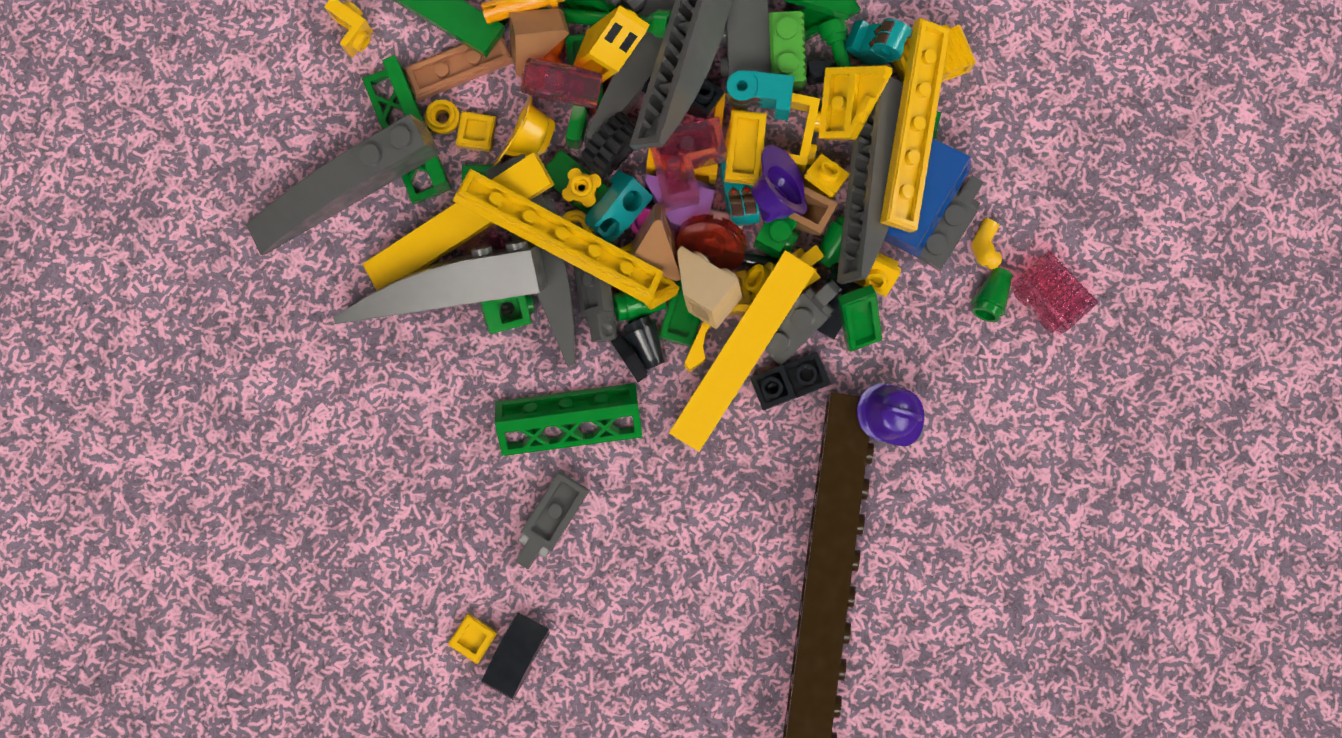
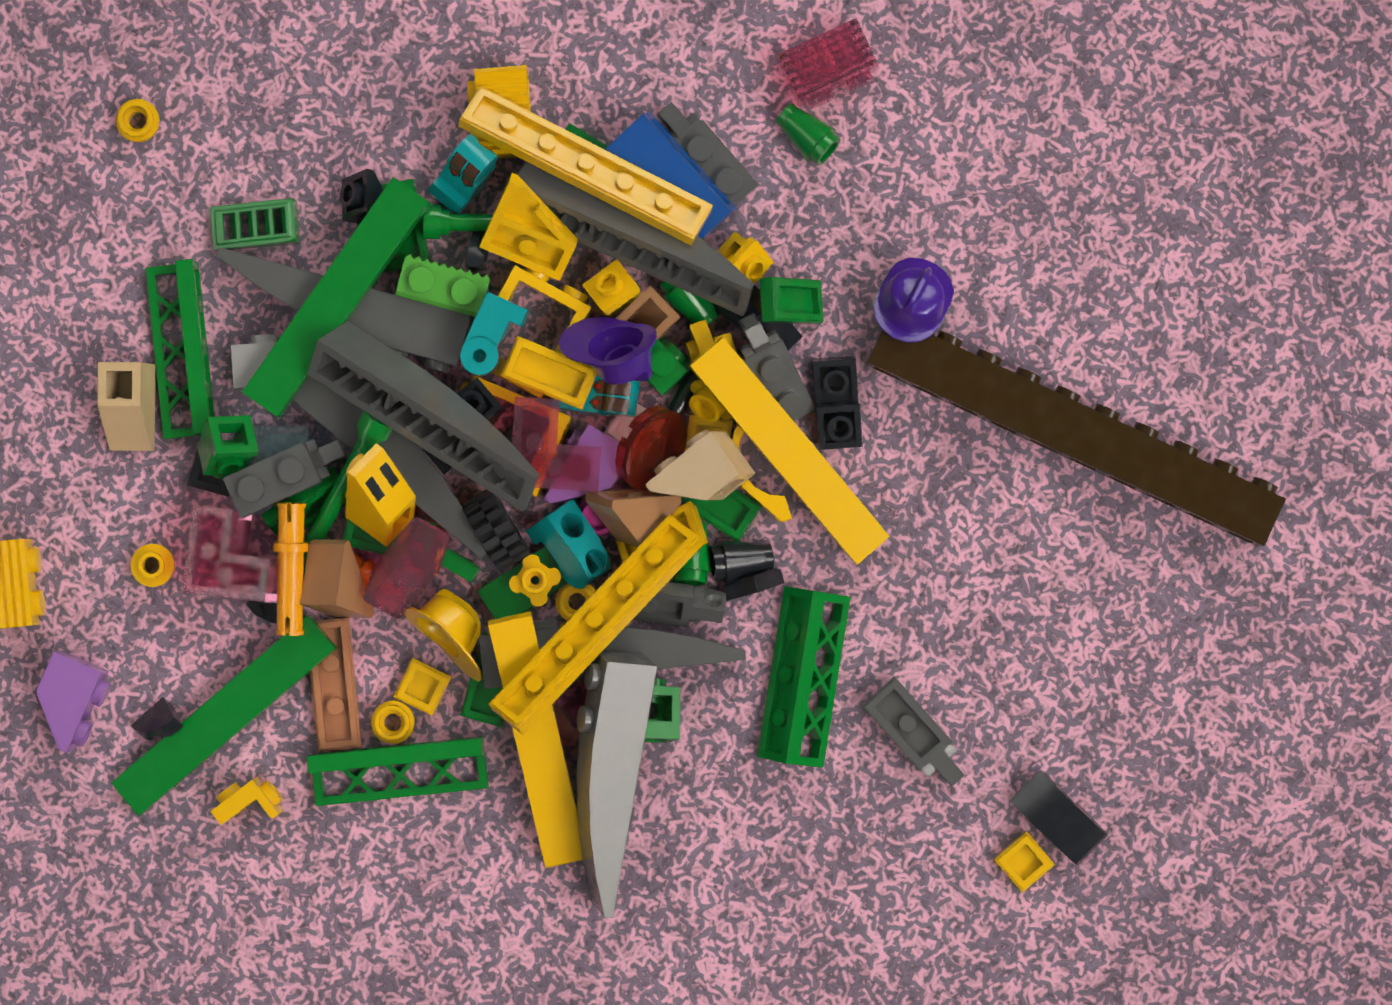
camera: 75 degrees left, 5 degrees up
(344, 182) = (447, 863): dark grey slope -> none
(983, 247) = (746, 126): yellow arm -> none

